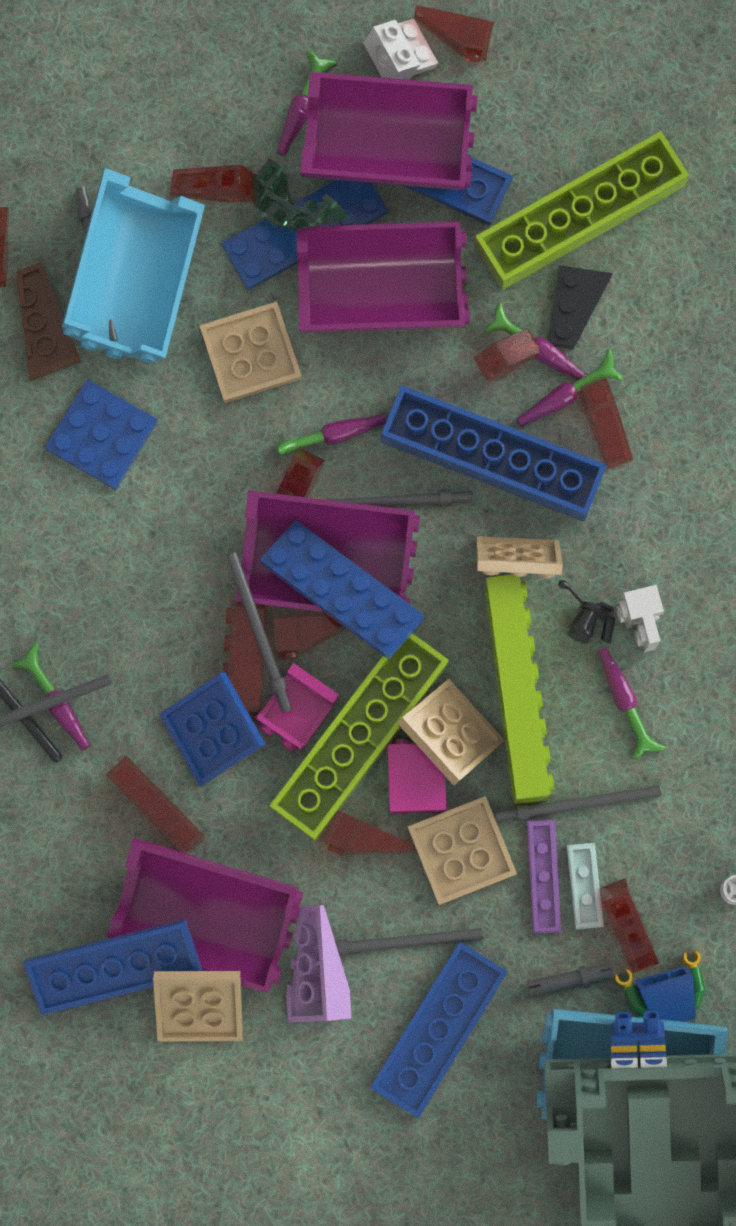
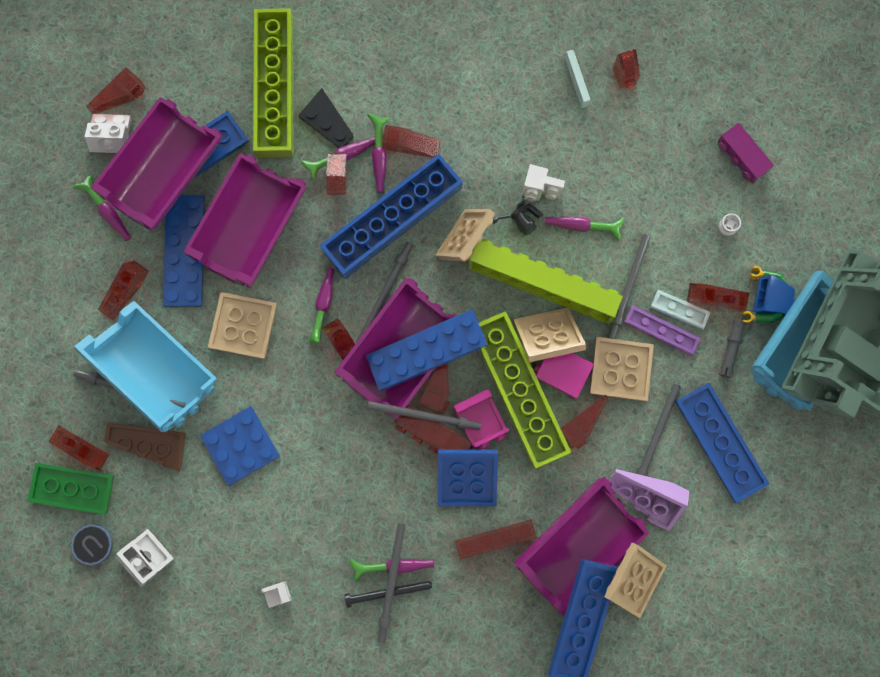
camera: 65 degrees left, 0 degrees up
(276, 206) = (163, 258): clear green windscreen -> none
(649, 1035) = (803, 326): blue hips -> none

